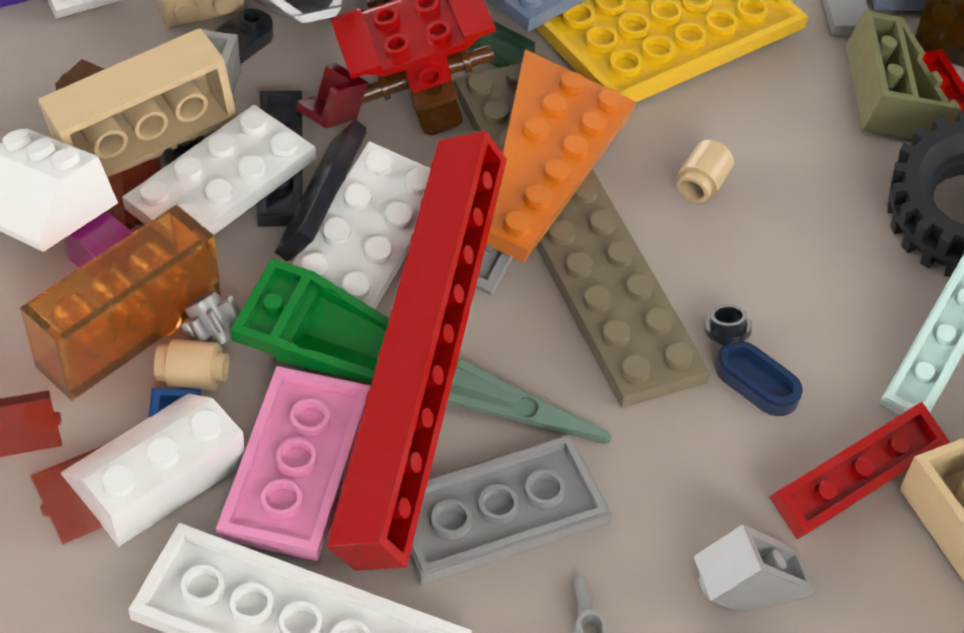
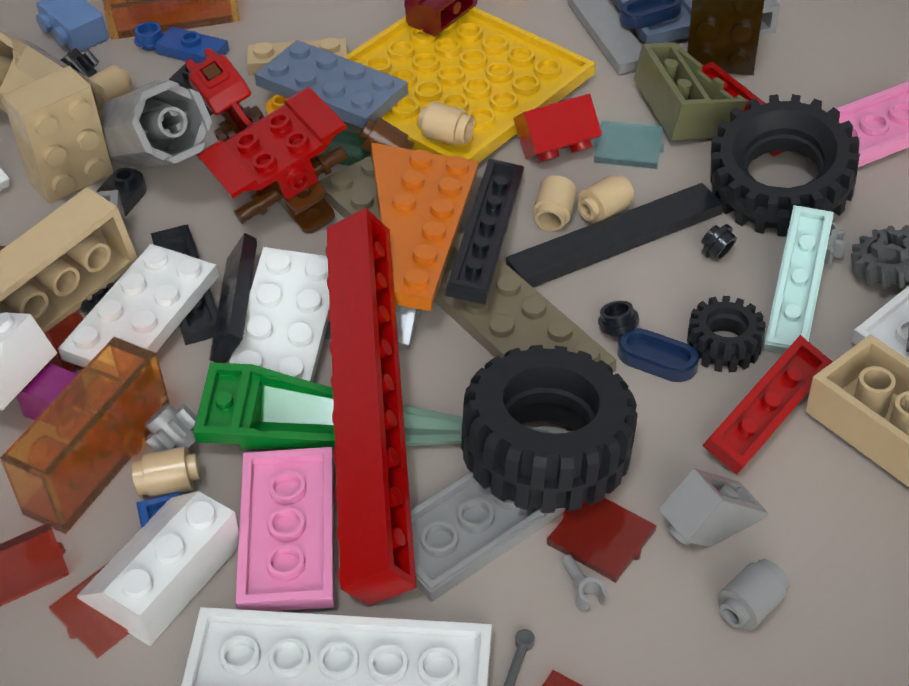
camera: 10 degrees left, 5 degrees down
(337, 98) = (220, 223): dark red panel -> none
(542, 42) = (383, 133): none -> reddish brown brick
(592, 479) = (540, 466): none -> black tyre
(614, 48) = (446, 123): none -> tan brick
(615, 186) = (485, 232): none -> black tile
(626, 564) = (602, 537): none -> clear red piece
(738, 83) = (557, 127): none -> red brick
(761, 226) = (615, 235): none -> black tile
(762, 181) = (605, 198): none -> tan brick
(813, 122) = (629, 144): none -> clear light blue piece
(845, 355) = (726, 317): none -> black tyre
(871, 266) = (718, 242): none -> black plate

